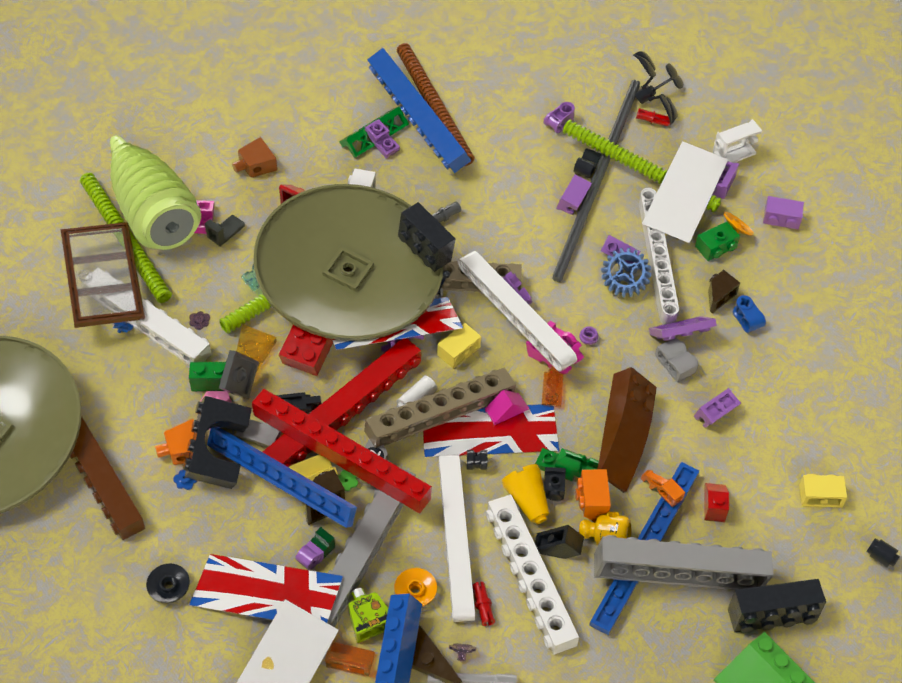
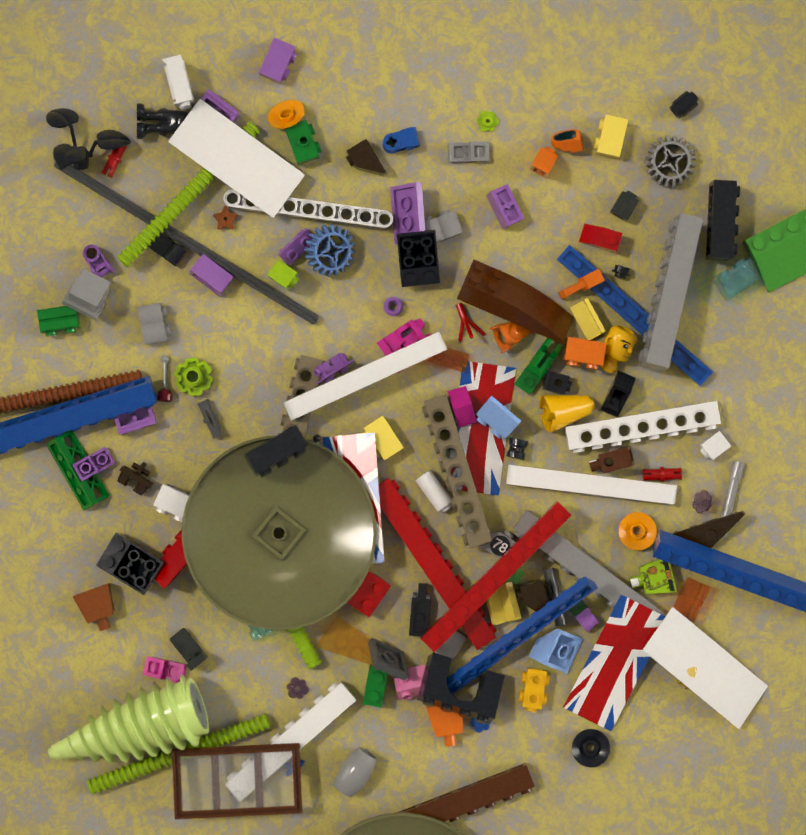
camera: 70 degrees left, 35 degrees up
(120, 371) = (355, 772): none -> light grey piece
(226, 517) = (533, 694): none -> yellow brick
(271, 532) = (556, 649): none -> light blue slope
(299, 168) = (130, 563): none -> black slope
(325, 522) = (549, 575): none -> dark grey pin
(379, 166) = (142, 483): none -> dark brown hips
(427, 163) = (139, 419): none -> medium lavender hinge
(456, 179) = (164, 394): none -> hinge
(478, 196) = (193, 376): none -> lime plant
(487, 542) = (621, 458): none -> reddish brown torso
(502, 100) = (58, 319): none -> green brick
(505, 434) = (497, 417): none -> light blue slope
(518, 161) = (153, 323): none -> light grey brick
(528, 649) = (714, 446): none -> white brick
(530, 109) = (88, 295): none -> light grey plate
(591, 240) = (283, 275): none -> lime brick
(592, 431) = (512, 334): none -> orange hair
(594, 395) = (466, 321): none -> red plant
(628, 203) = (230, 218): none -> dark orange plate
(630, 501) = (587, 319): none -> light yellow panel
(643, 336) = (418, 258): none -> black slope
(687, 525) = (621, 271): none -> black plate
(698, 127) = (169, 121): none -> black piece
(719, 634) = (738, 279): none -> clear light blue slope
(757, 515) = (624, 205): none -> pearl dark grey brick
(758, 373) = (468, 152): none -> light grey slope
(774, 432) = (544, 161): none -> orange slope
(794, 386) = (493, 121): none -> lime plant
(802, 454) = (568, 141): none -> orange rock
(818, 539) = (674, 169): none -> light grey gear

